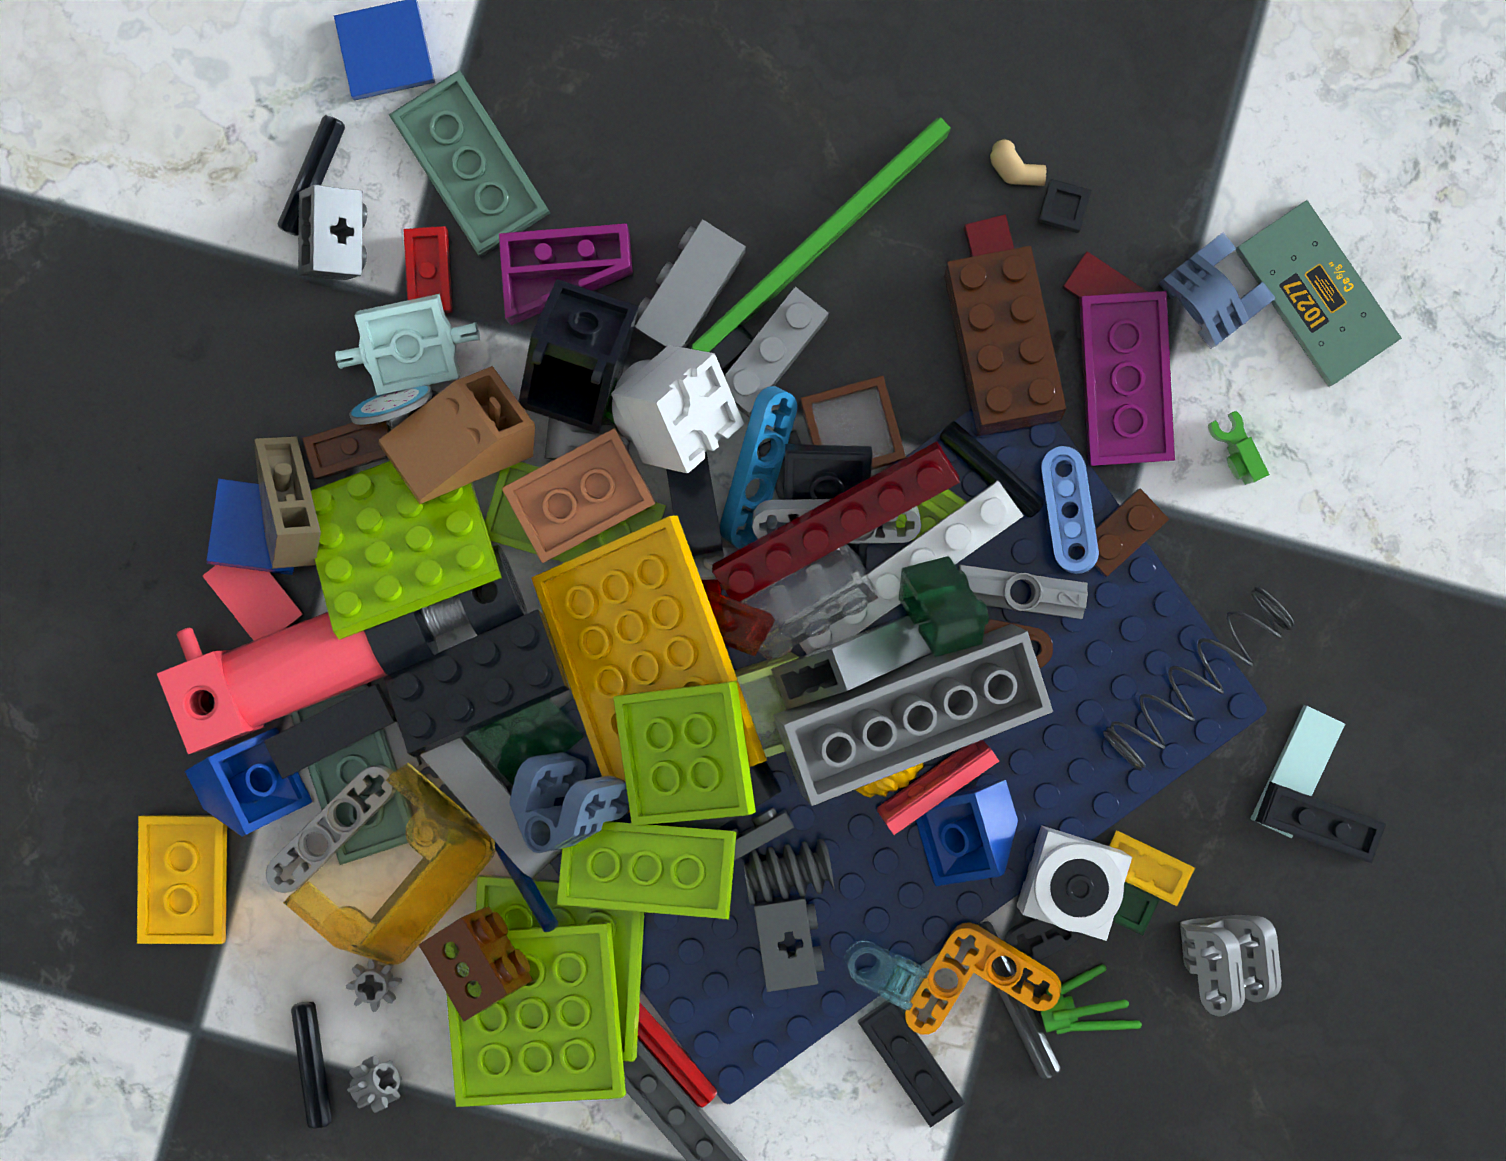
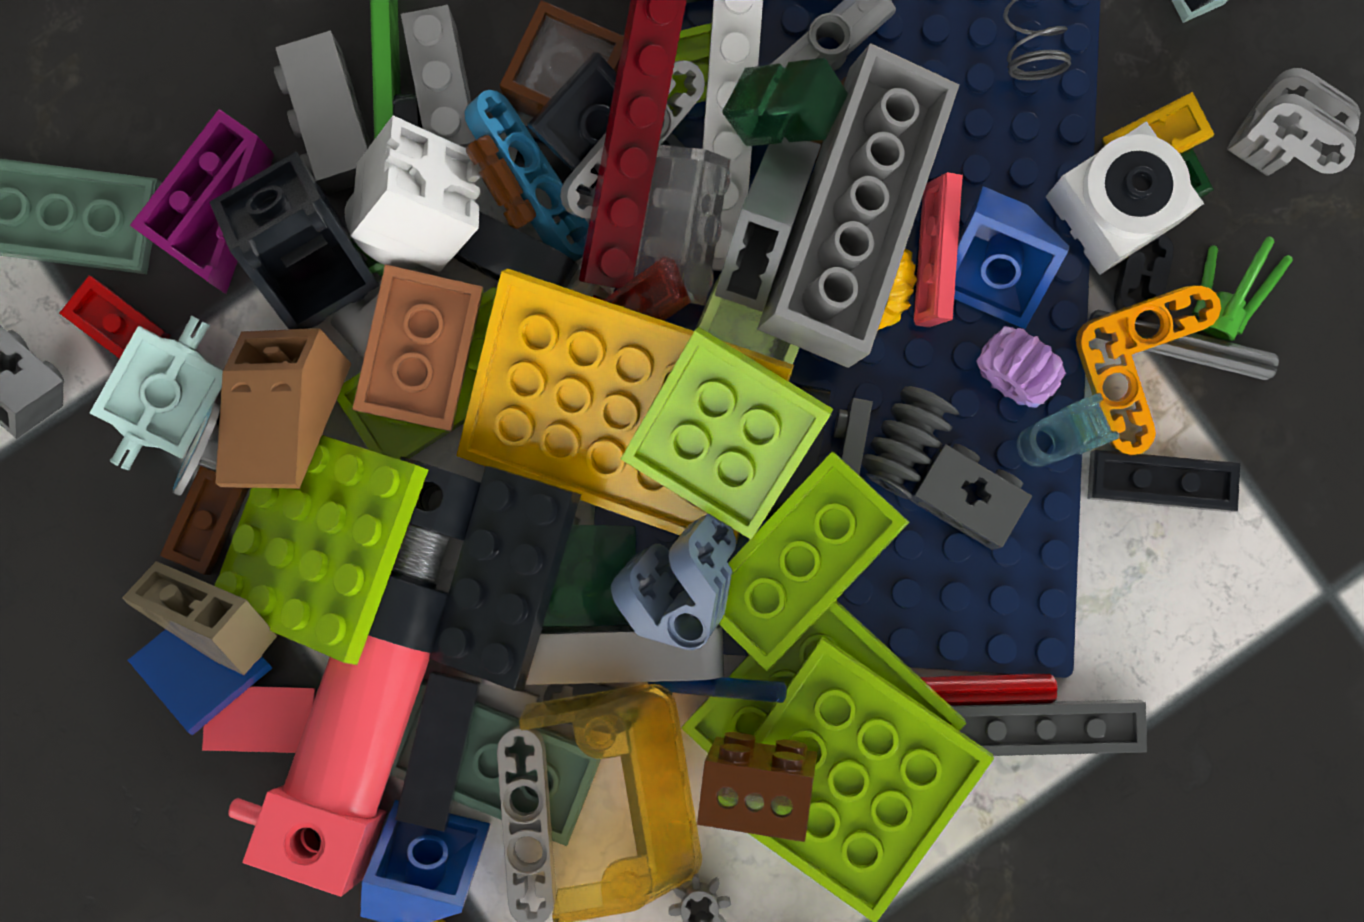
camera: 50 degrees left, 5 degrees down
(735, 455) = (500, 181): none -> reddish brown axle
(900, 906) = (1021, 366): none -> lavender gear

